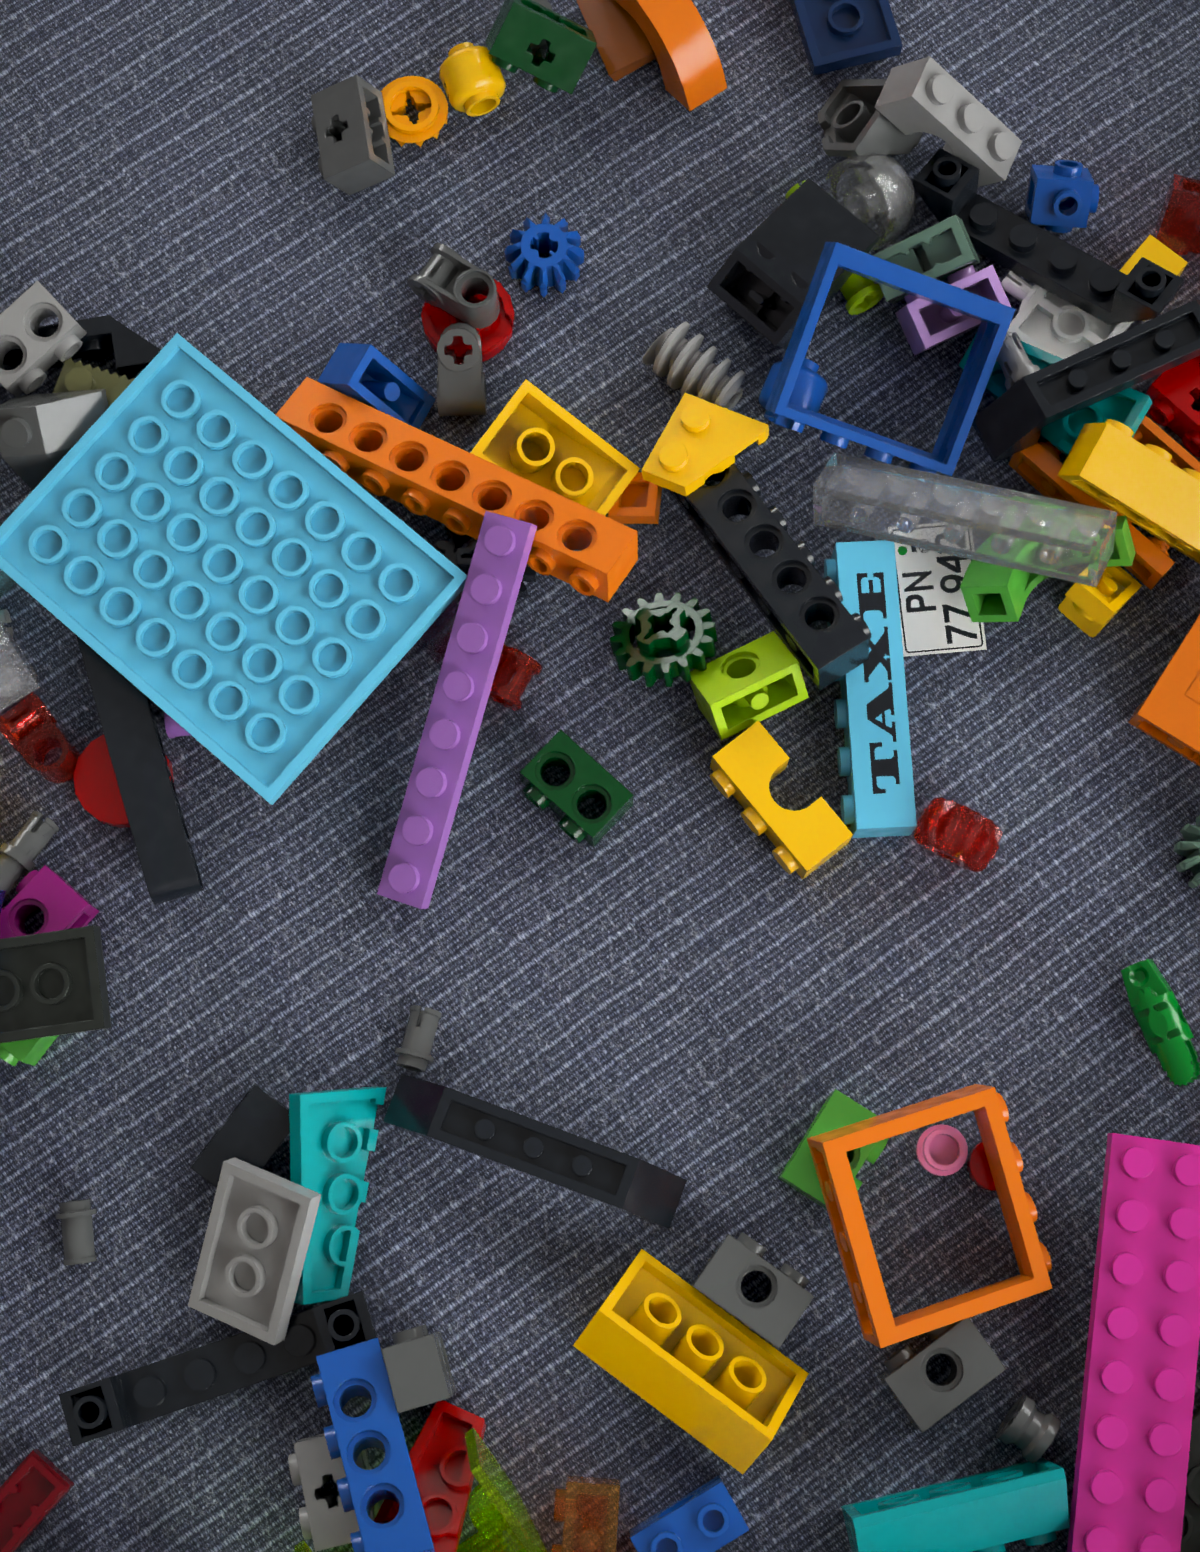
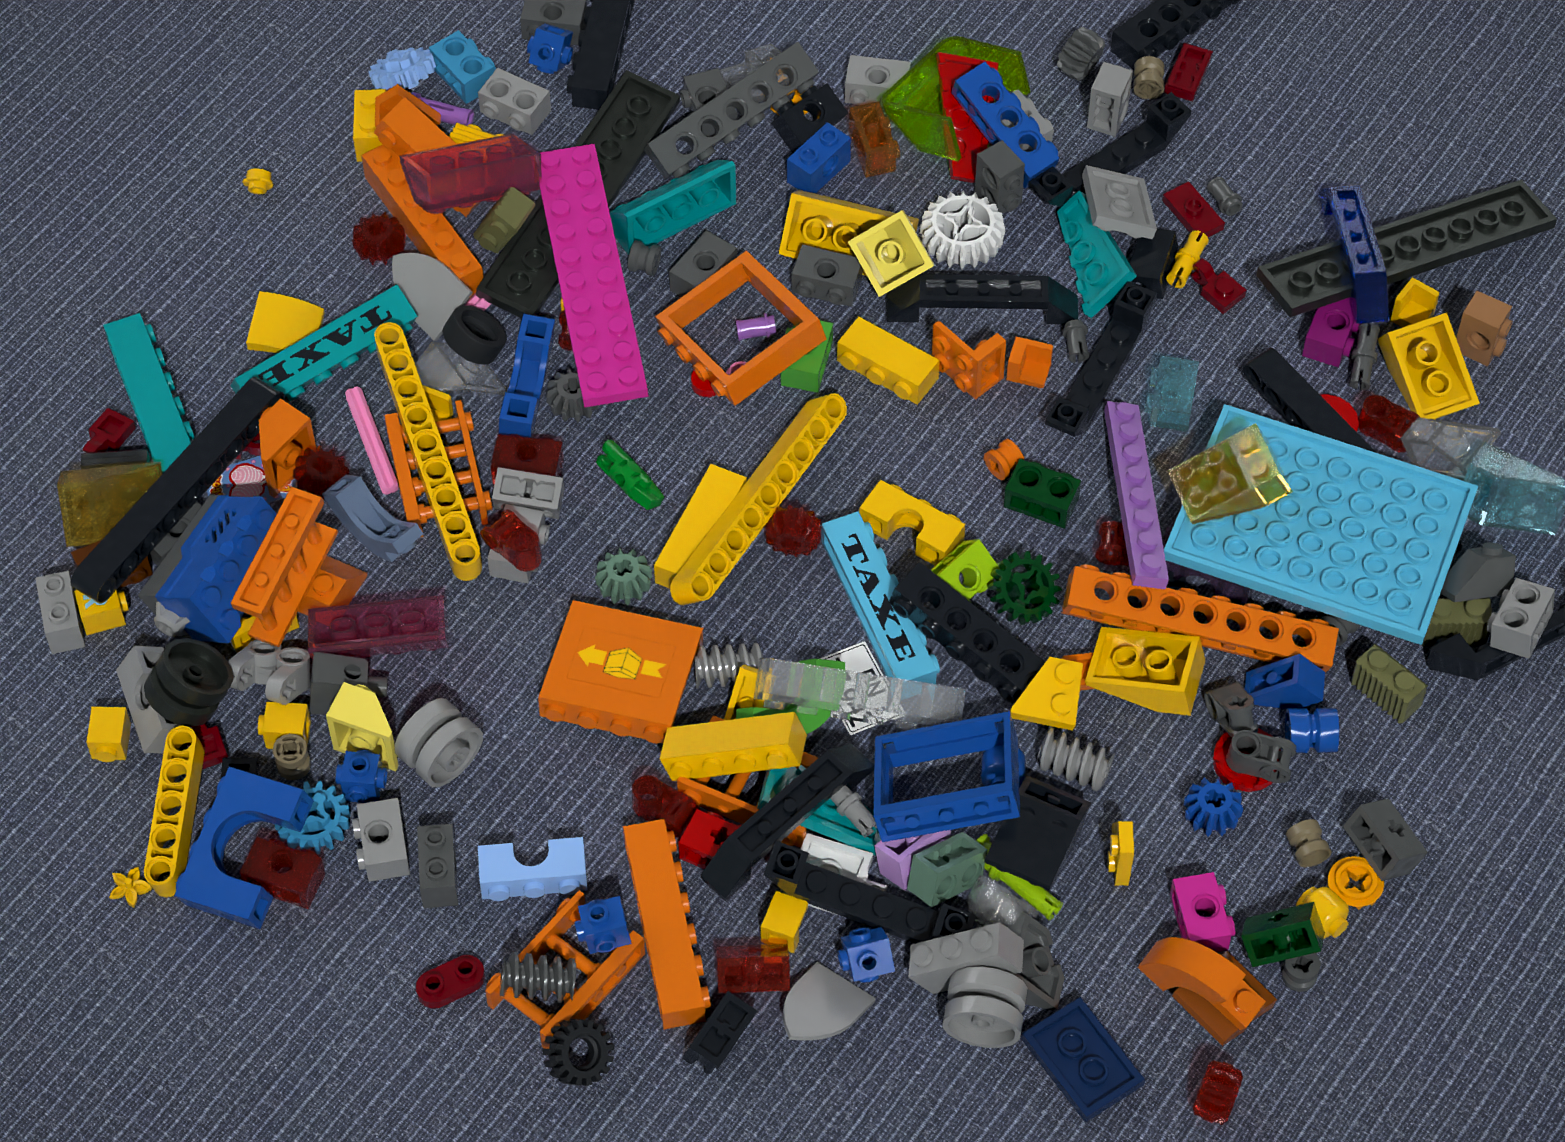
camera: 160 degrees right, 20 degrees down
(87, 1515) = (1149, 83): none -> dark tan wheel
(137, 1224) = (1193, 210): none -> dark red plate
(163, 1062) = (1218, 290): none -> dark red plate
(173, 1476) = (1109, 99): none -> light grey brick
(189, 1130) = (1186, 258): none -> yellow pin
(241, 341) = (1388, 683): none -> olive brick
(320, 892) = (1173, 393): none -> clear light blue brick
(324, 649) = (1230, 477): none -> clear yellow slope
(377, 311) = (1313, 730): none -> blue wheel
(406, 974) = (1106, 362): none -> black slope
(447, 170) = (1308, 842): none -> dark tan wheel
(475, 1278) = (962, 229): none -> white gear
(506, 1021) = (1029, 362): none -> orange panel
(578, 1022) = (970, 369): none -> orange bracket
(608, 863) = (1003, 459): none -> orange wheel
(624, 97) = (1202, 894): none -> dark pink brick
(660, 1262) = (891, 253): none -> light yellow slope
(690, 223) = (1121, 852): none -> yellow wing
(717, 1094) = (887, 360): none -> yellow brick
(895, 1233) = (756, 327): none -> medium lavender pin
(956, 45) = (985, 1007): none -> light grey wheel
(991, 899) = (758, 500): none -> yellow beam
(1084, 893) = (702, 512): none -> yellow brick
(1111, 657) = (724, 665): none -> light grey piece
(1138, 154) = (823, 1005): none -> light grey shield

